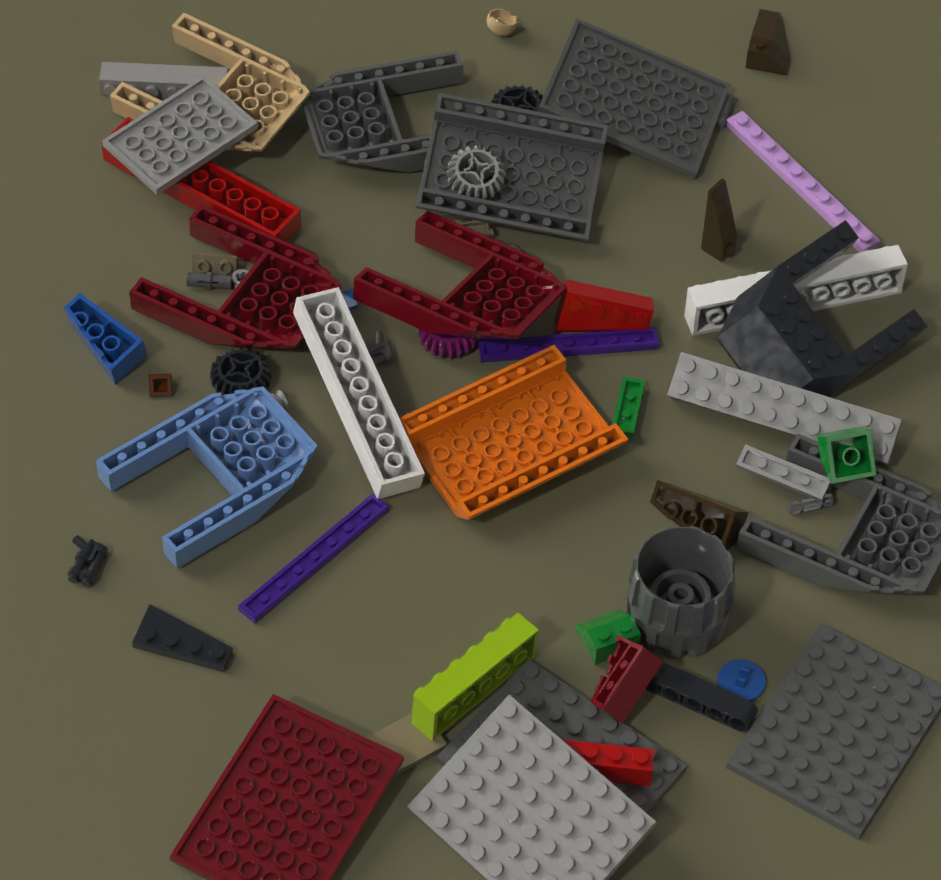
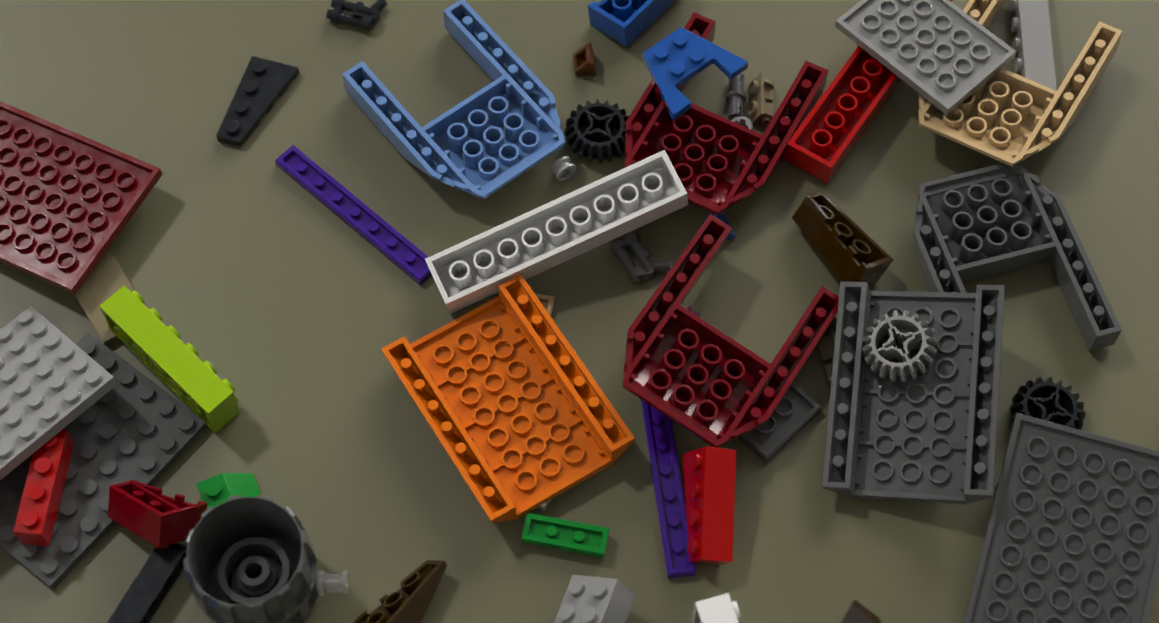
camera: 90 degrees right, 10 degrees up
(185, 303) = (680, 59): none -> blue wing
(367, 213) = (840, 240): none -> dark brown wedge

